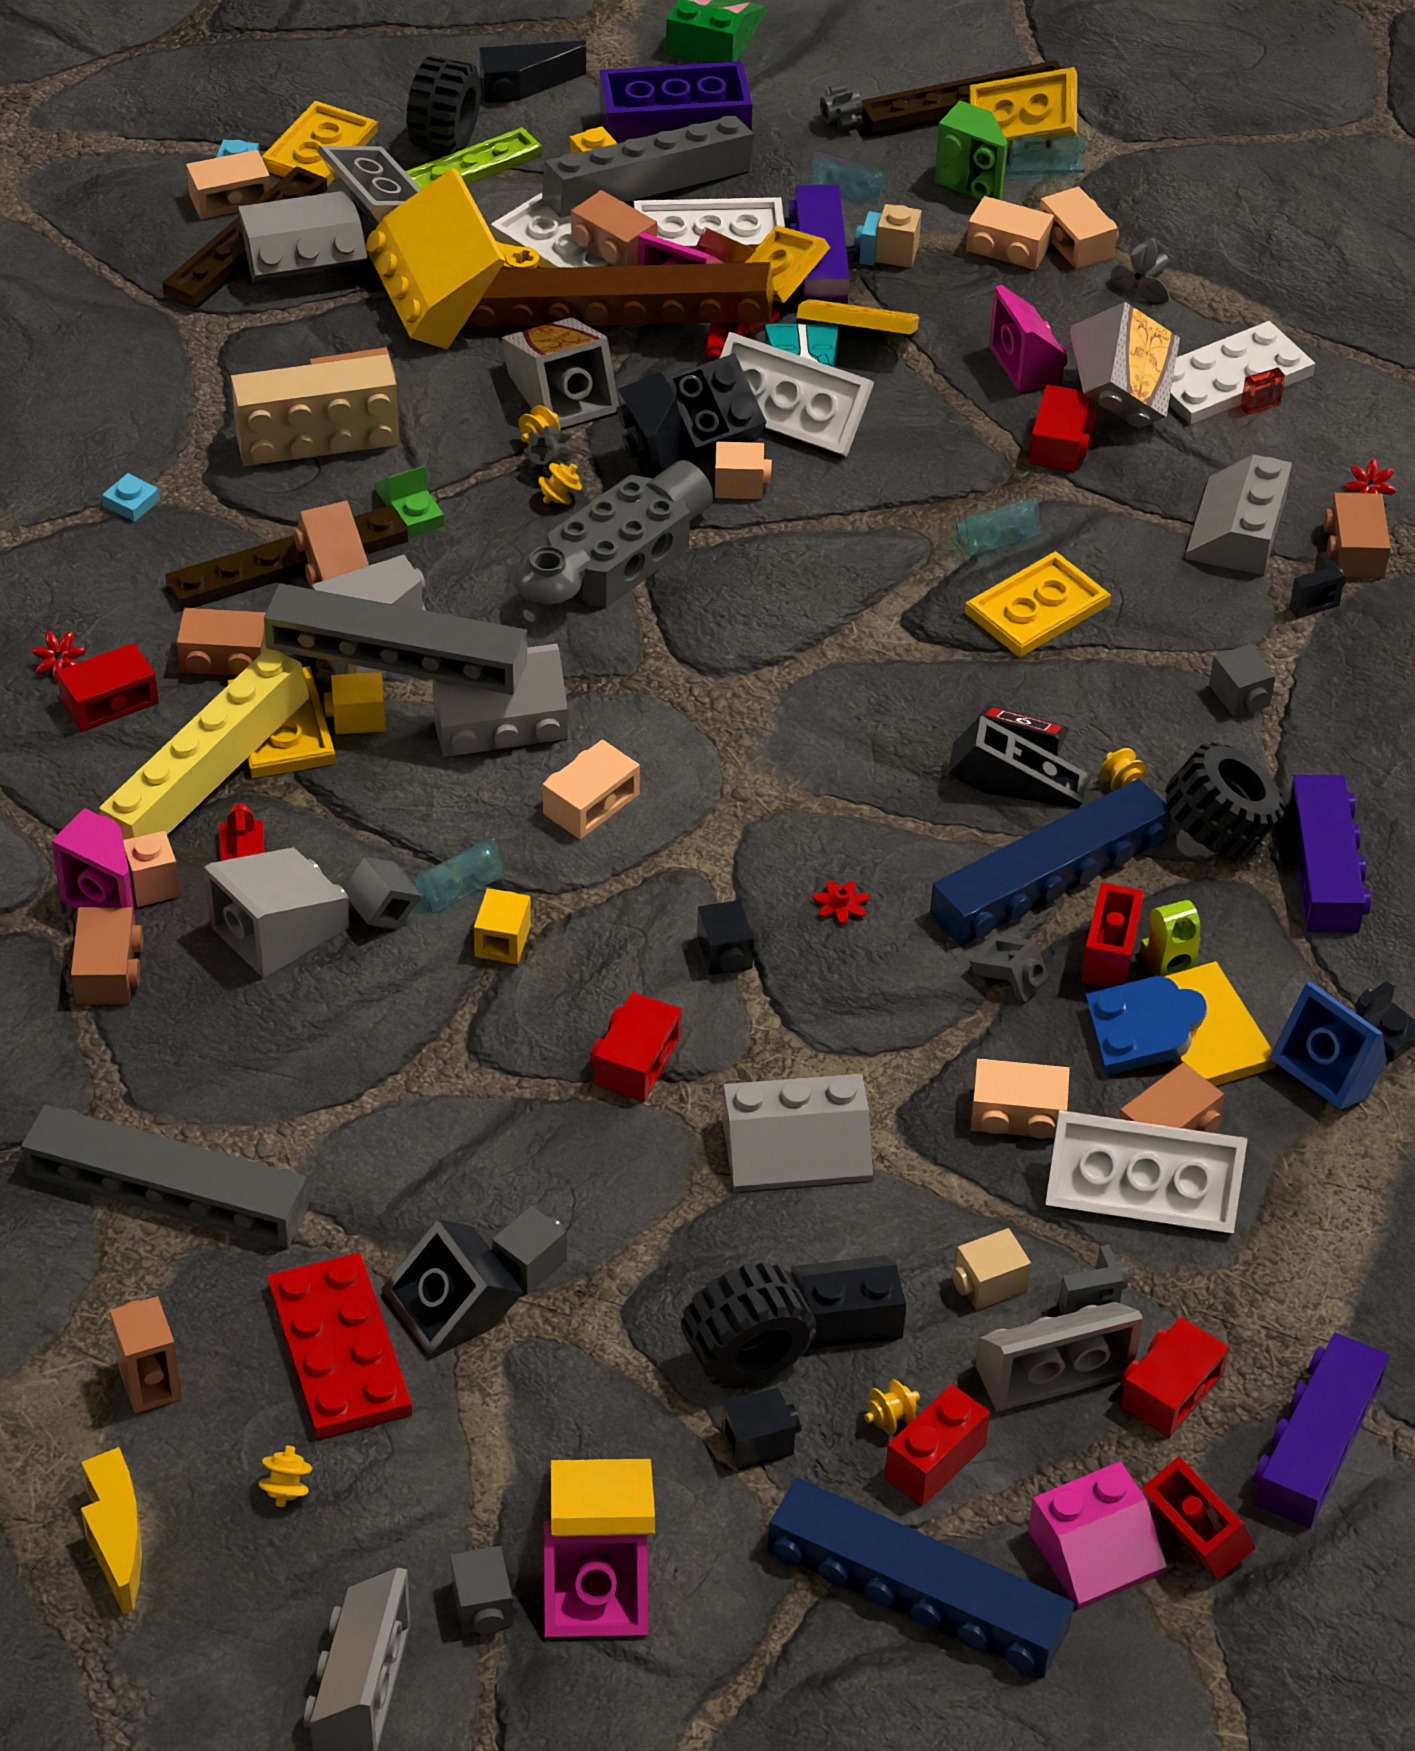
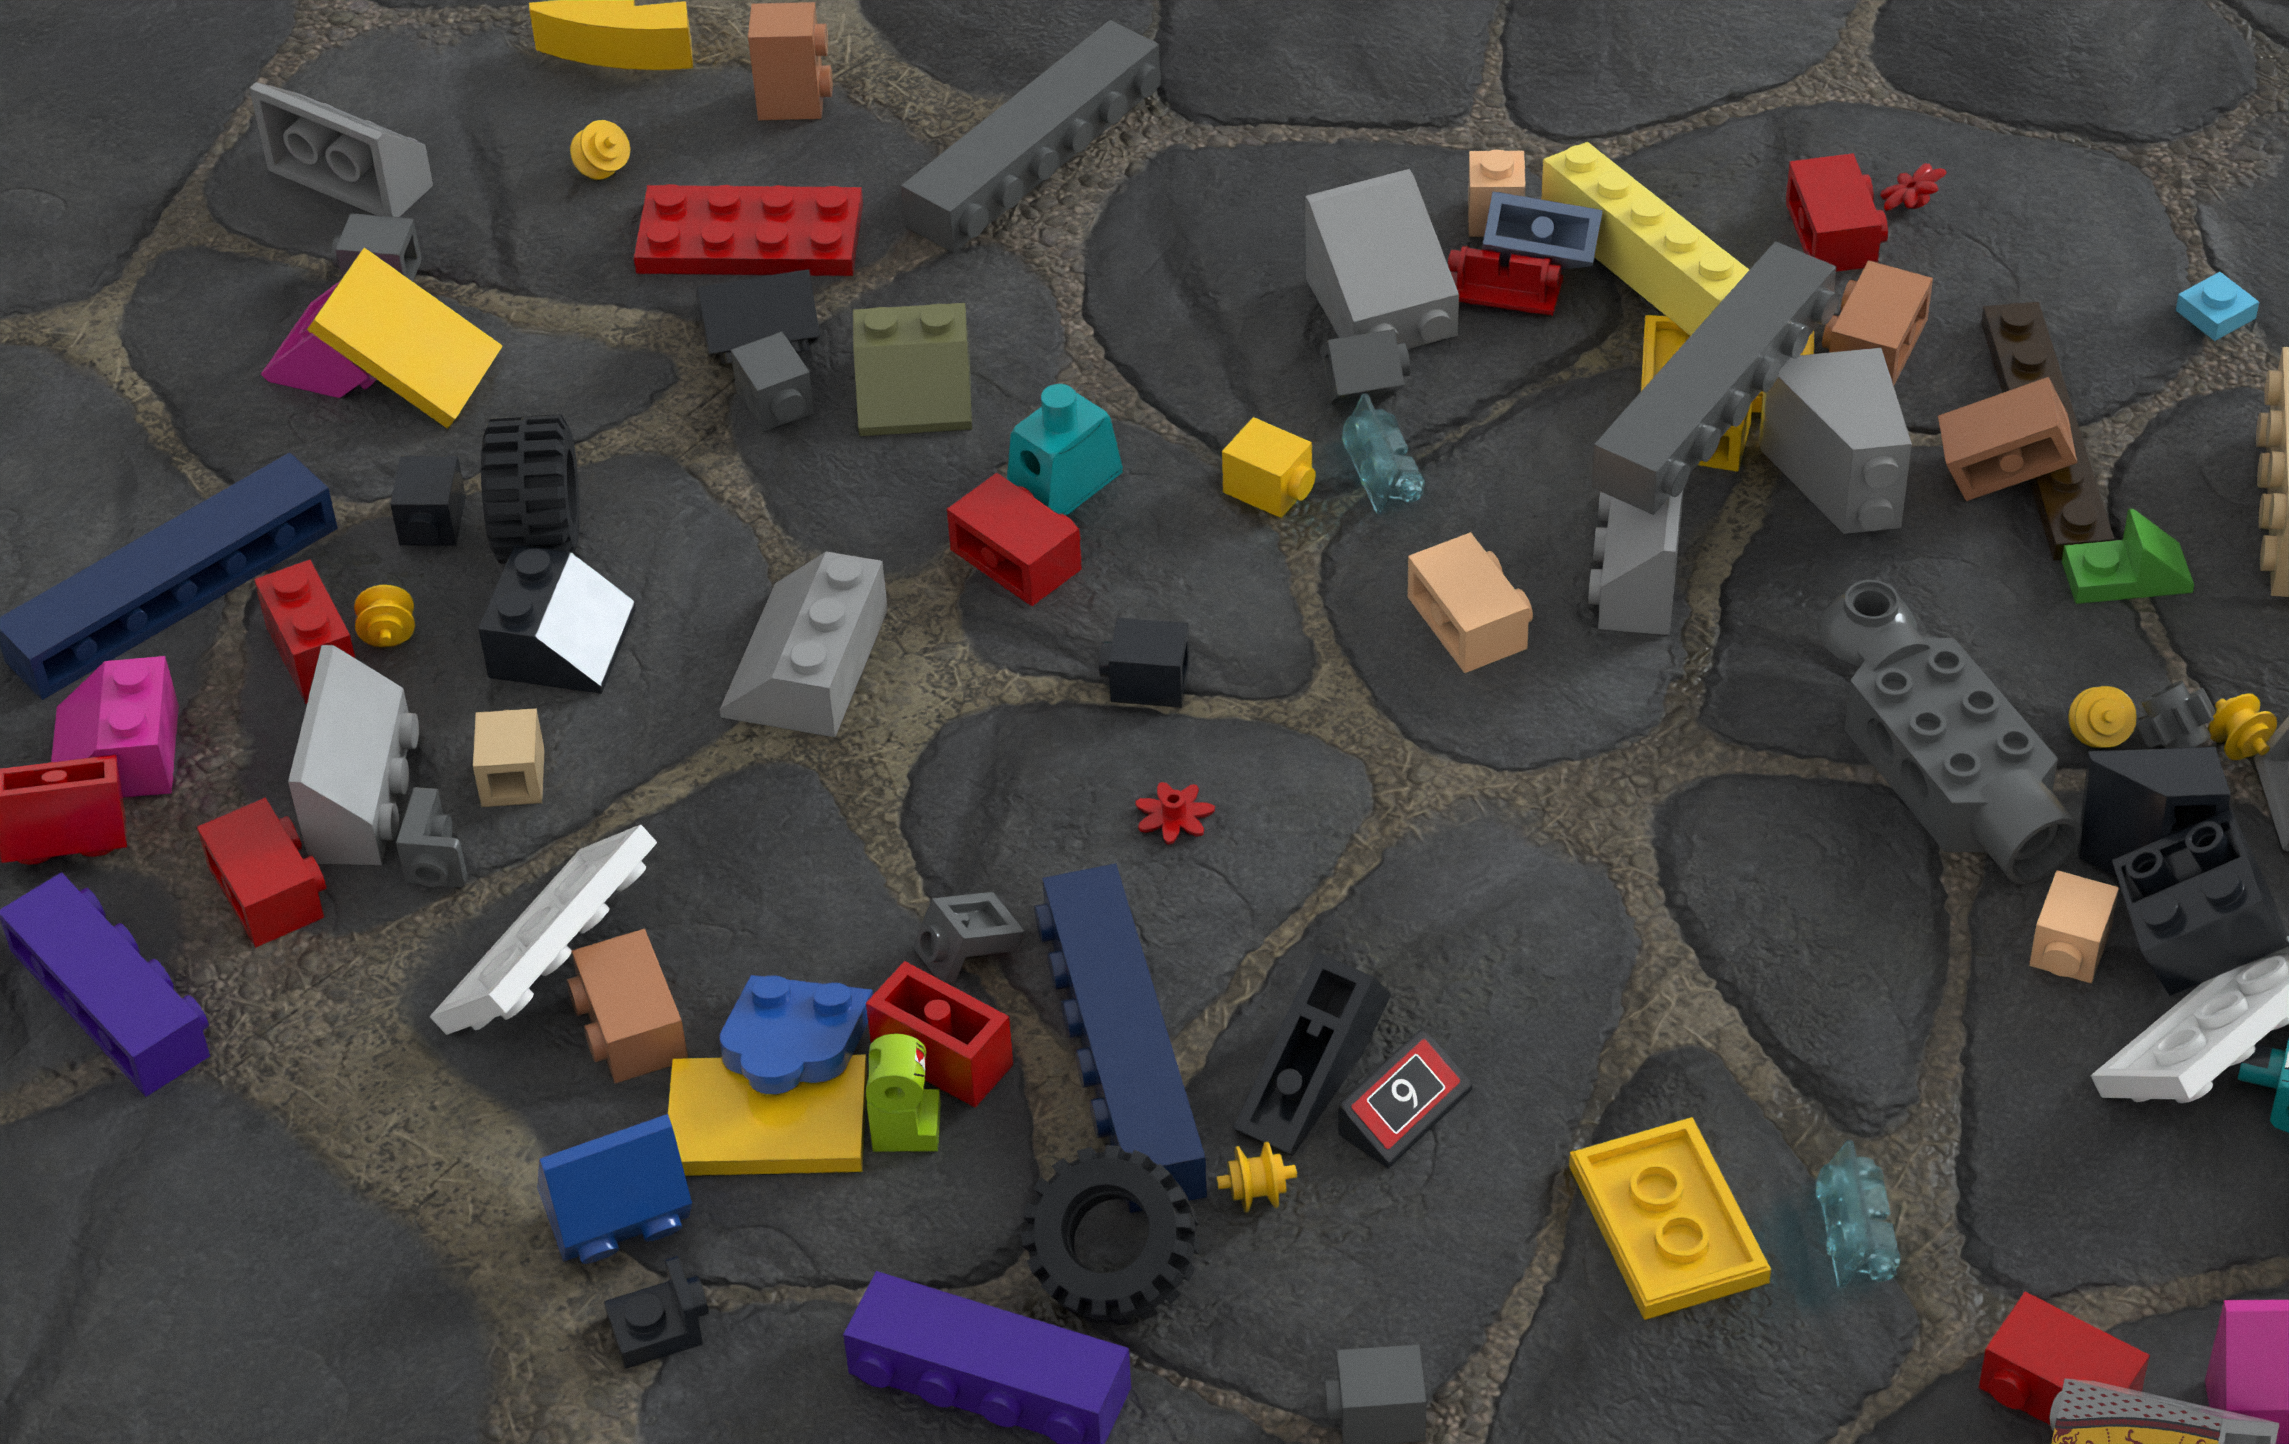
camera: 115 degrees right, 0 degrees up
(92, 863) = (1486, 114): dark pink slope -> none
(105, 955) = (1378, 137): nougat brick -> none
(203, 825) = (1541, 230): none -> sand blue slope
(479, 1165) = (912, 369): none -> olive slope
(551, 1033) = (1064, 450): none -> teal torso
(1018, 1098) = (739, 865): light nougat brick -> none

